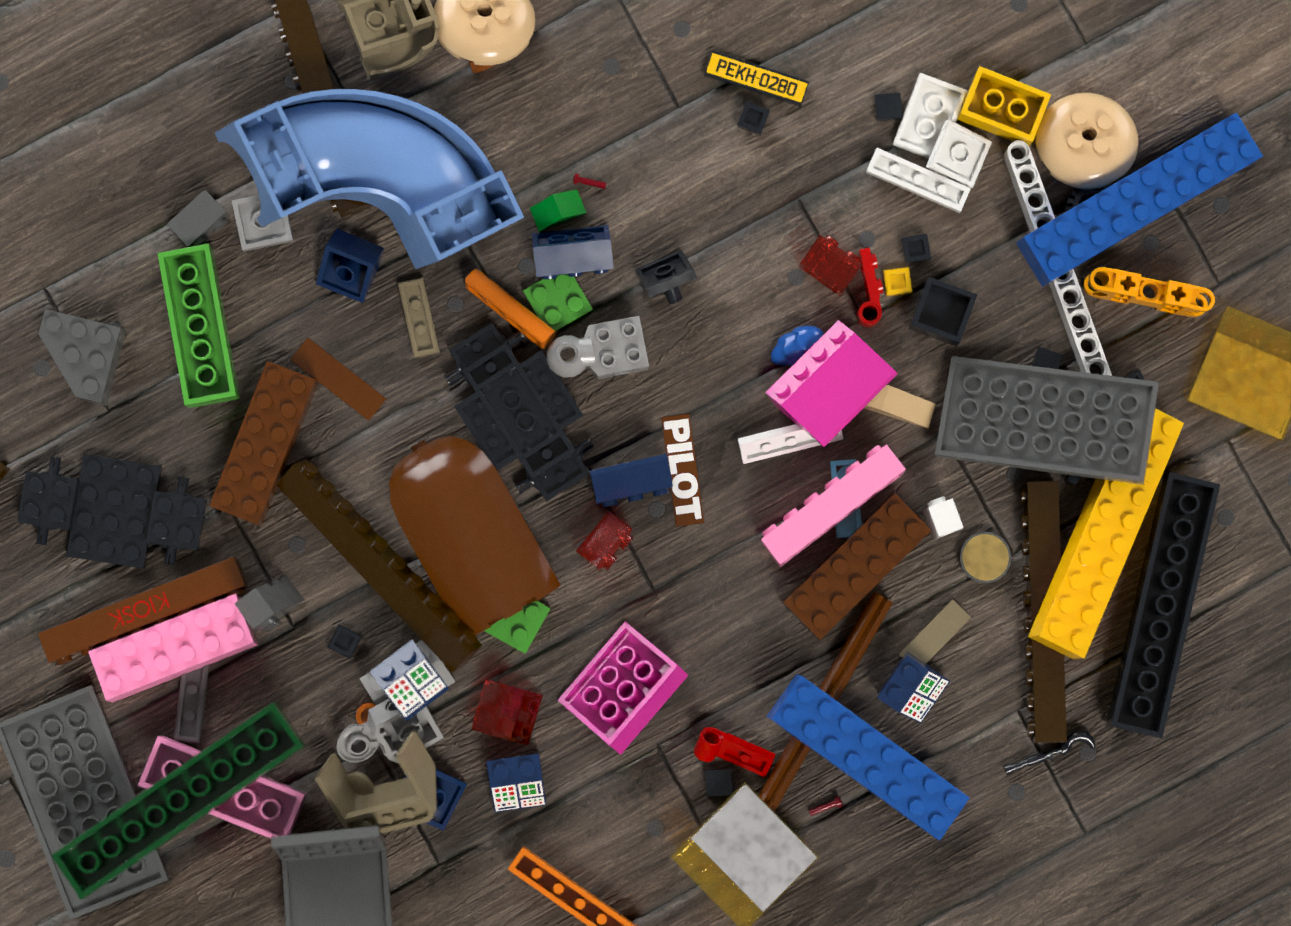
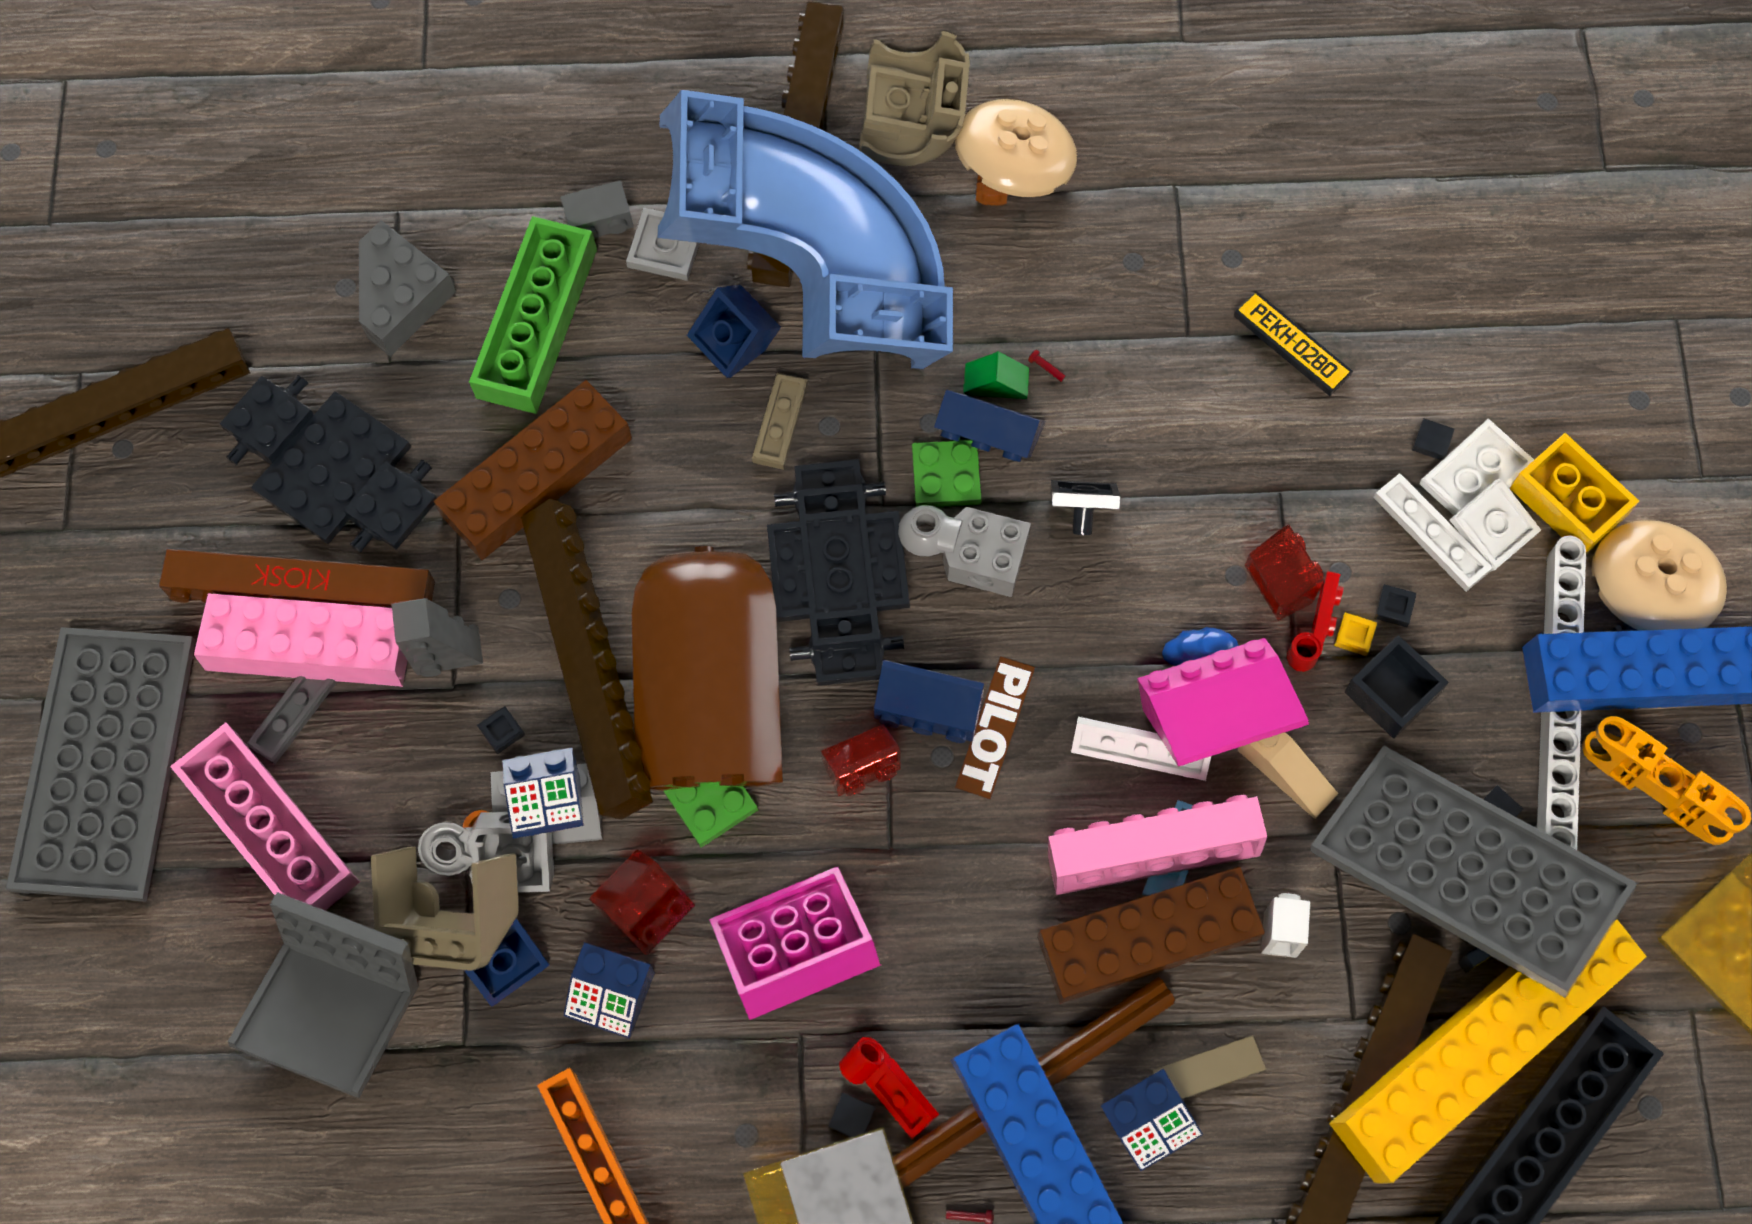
camera: 35 degrees right, 15 degrees down
(178, 800) = (200, 801): dark green brick -> none
(338, 379) = (656, 445): reddish brown sticker -> none
(509, 308) = (886, 453): orange brick -> none
(753, 118) = (1268, 381): black plate -> none
(985, 557) = (1316, 1005): pearl gold tile -> none

